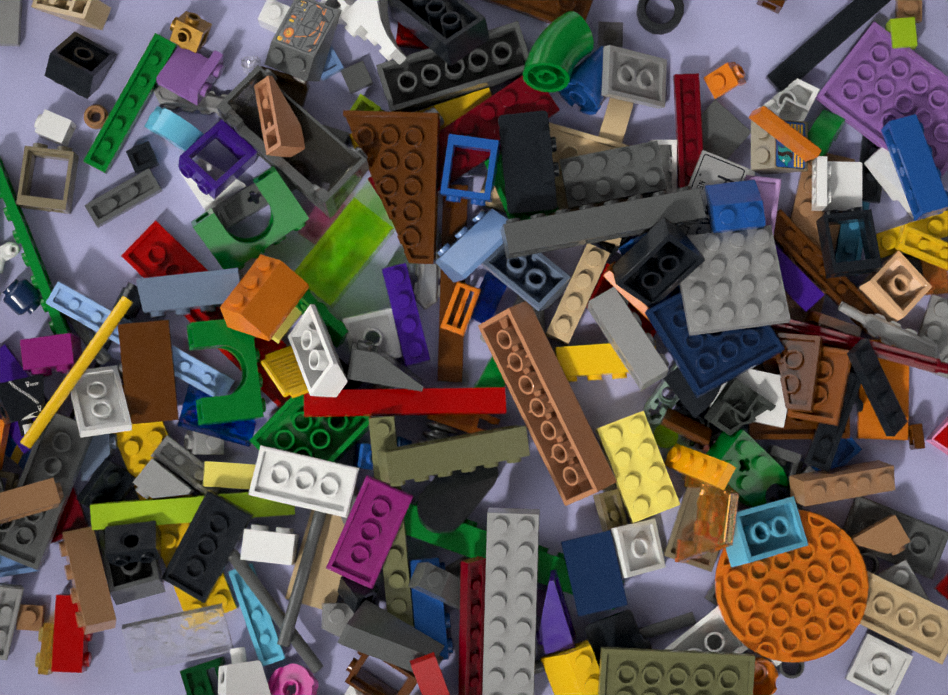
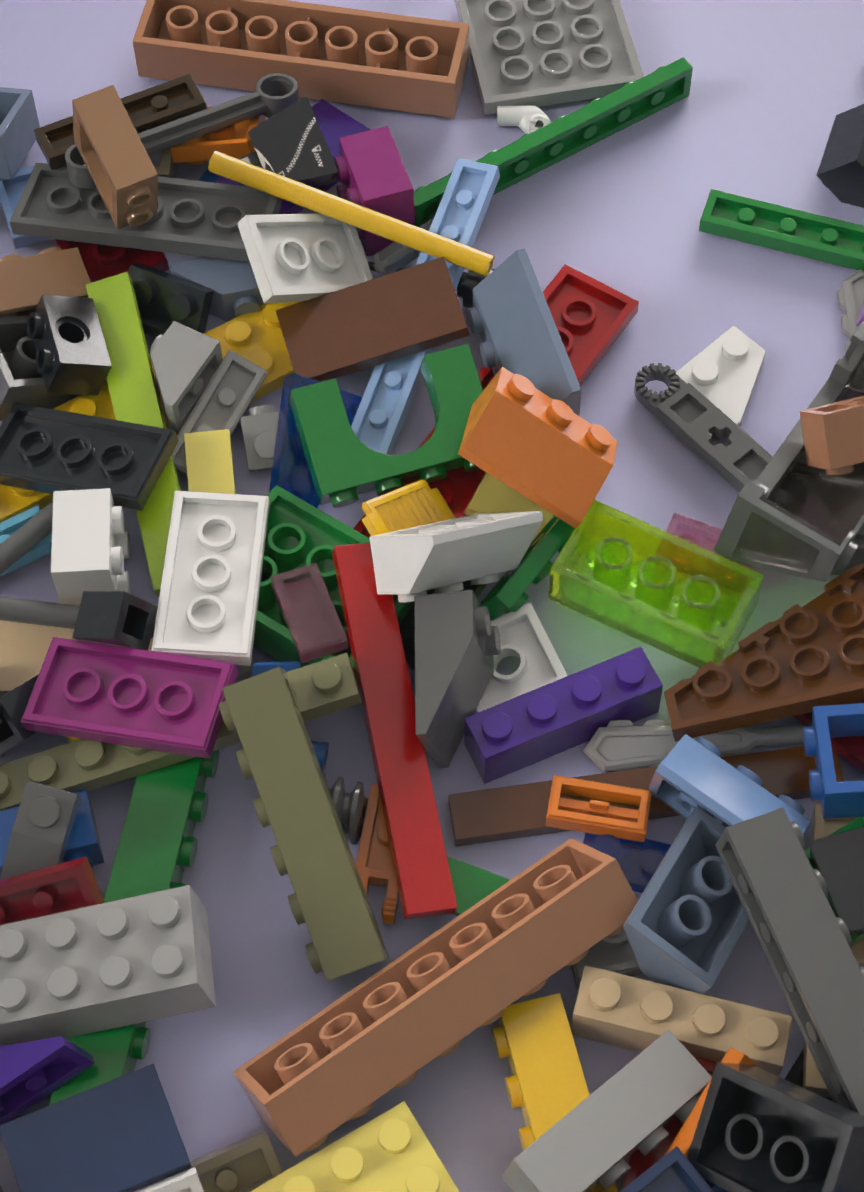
camera: 85 degrees right, 25 degrees down
(21, 297) = (463, 139): dark blue head -> none
(40, 150) = (662, 123): dark tan window -> none
(54, 128) = (754, 147): white brick -> none
(91, 111) = (792, 194): medium nougat plate -> none
(123, 198) = (665, 256): dark grey plate -> none
(142, 157) = (741, 270): black plate -> none
(173, 128) = (802, 300): medium azure brick -> none
(231, 141) = (752, 390): dark purple window -> none
(234, 250) = (702, 482): green arch -> none
(325, 534) = (115, 619): none -> black brick
(335, 434) = (309, 612): none -> clear pink tile
(453, 498) = (221, 852): black tile -> none

